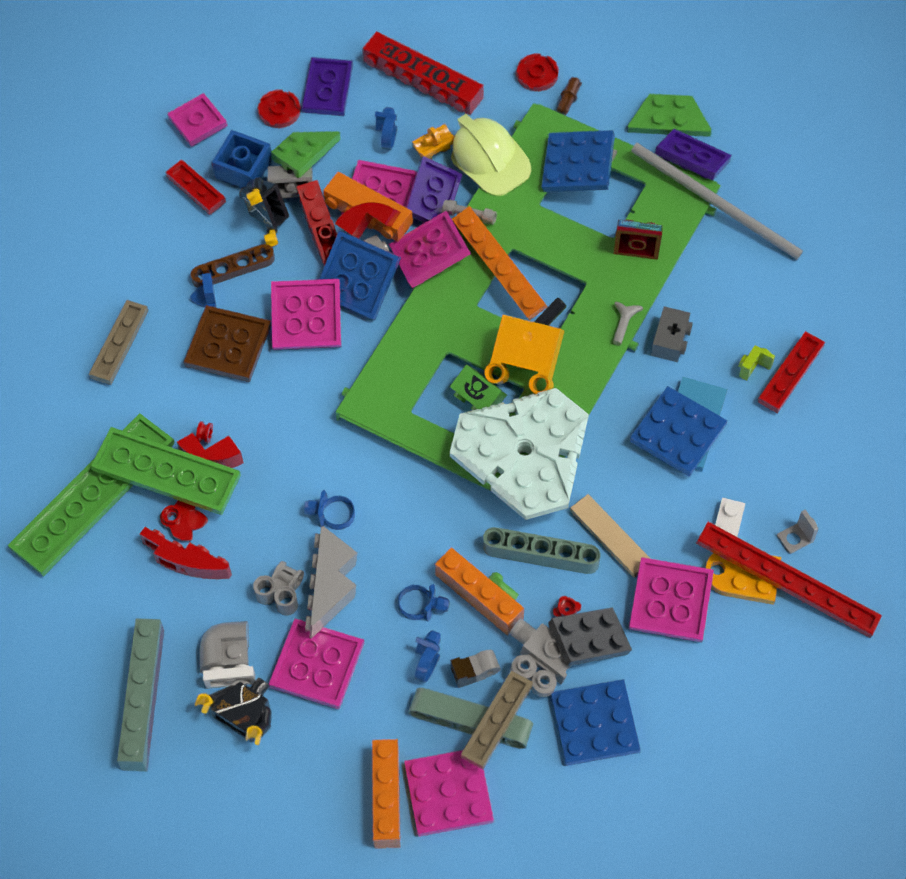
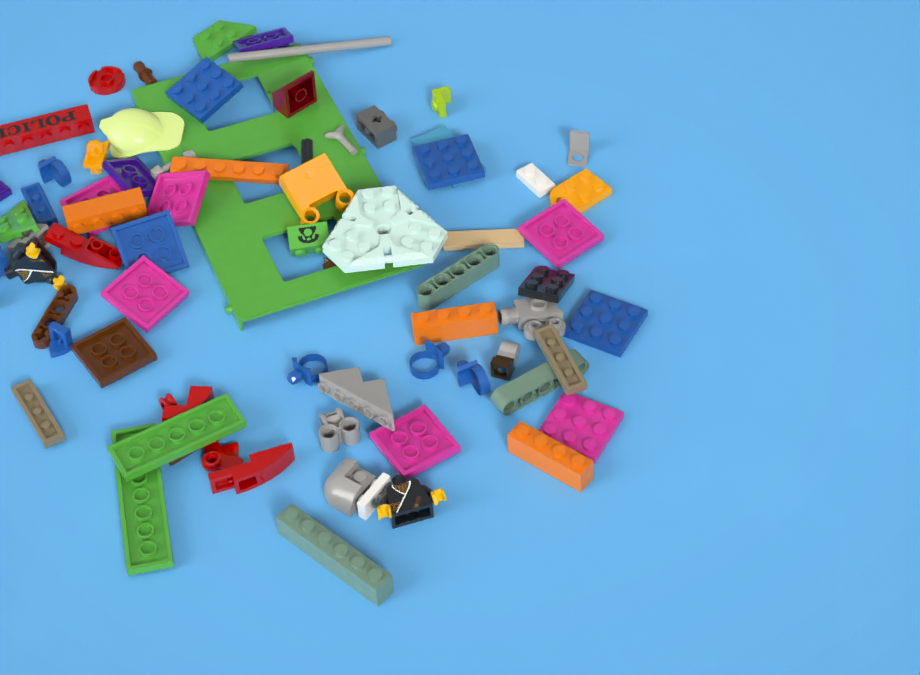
camera: 50 degrees left, 15 degrees down
(346, 147) = (39, 204): none -> blue tile
(358, 217) = (122, 198): red brick -> none
(566, 602) = (510, 289): red plate -> none
(789, 579) = (604, 171): red tile -> none
(791, 372) = (466, 90): red plate -> none

